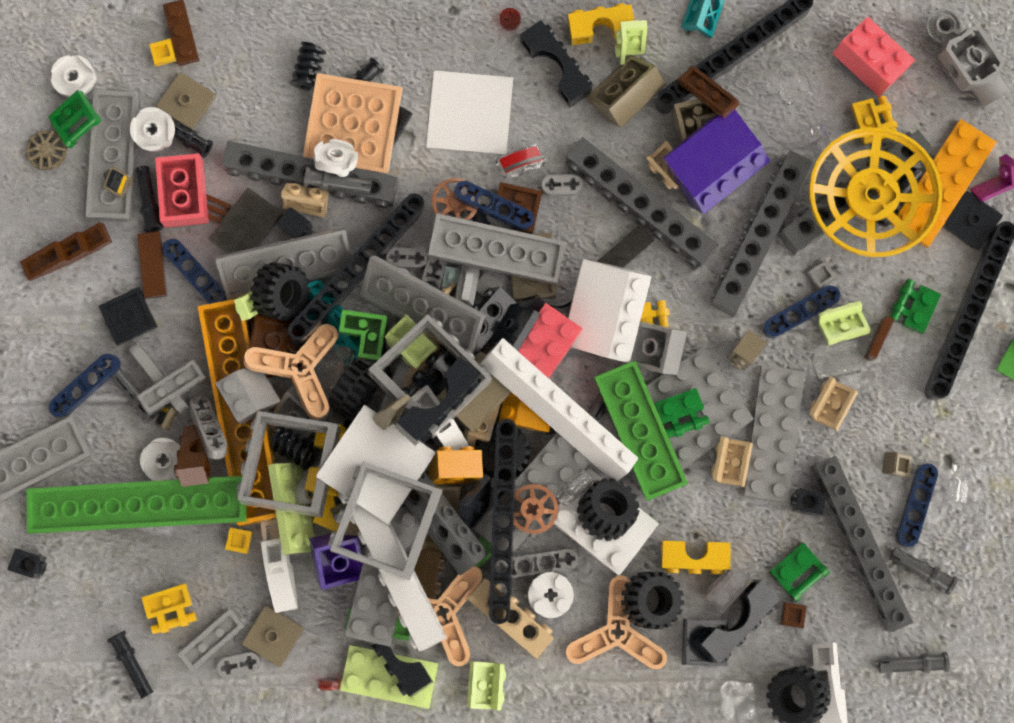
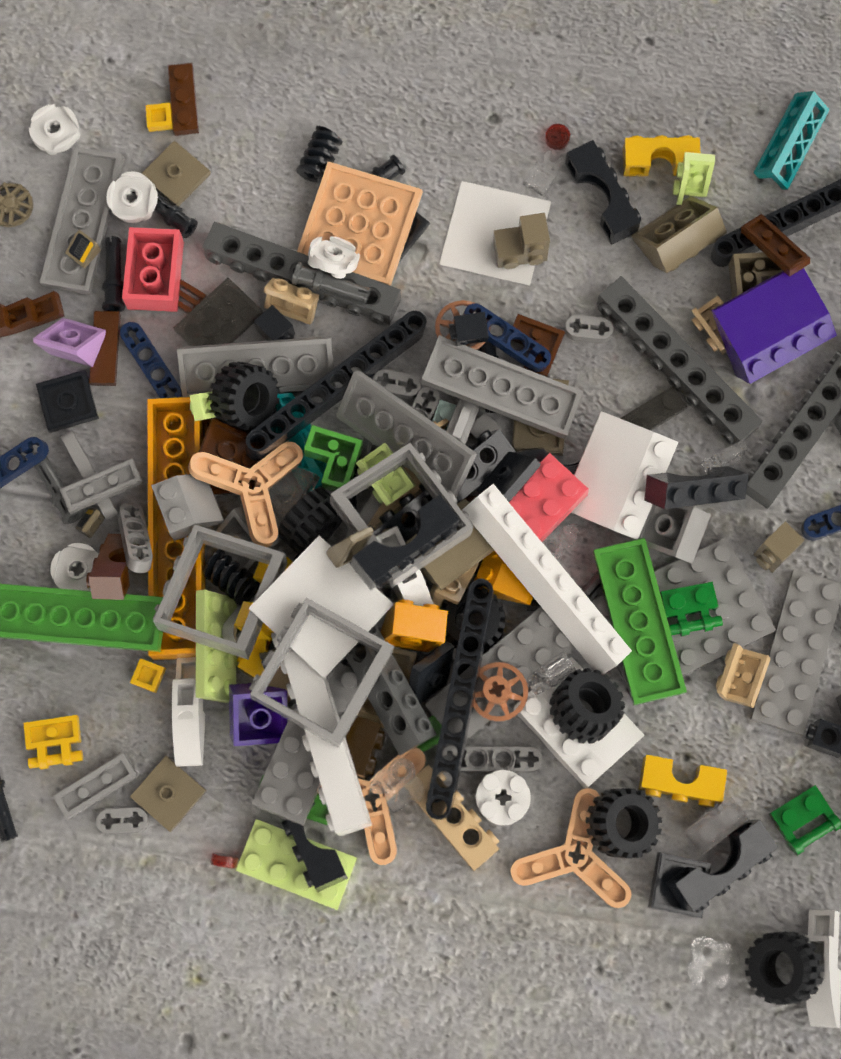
camera: 15 degrees right, 5 degrees down
(69, 114) = (42, 168): green plate -> none
(123, 263) = (72, 341): none -> lavender slope
(461, 205) = (469, 329): none -> black brick
(462, 602) = (396, 788): none -> clear plate
(486, 685) = (409, 893): yellowish green bracket -> none
(494, 120) = (524, 243): none -> dark tan brick
(518, 161) = (540, 294): slope -> none
(657, 318) = (678, 491): none -> black arch
(793, 615) = (791, 870): reddish brown tile -> none

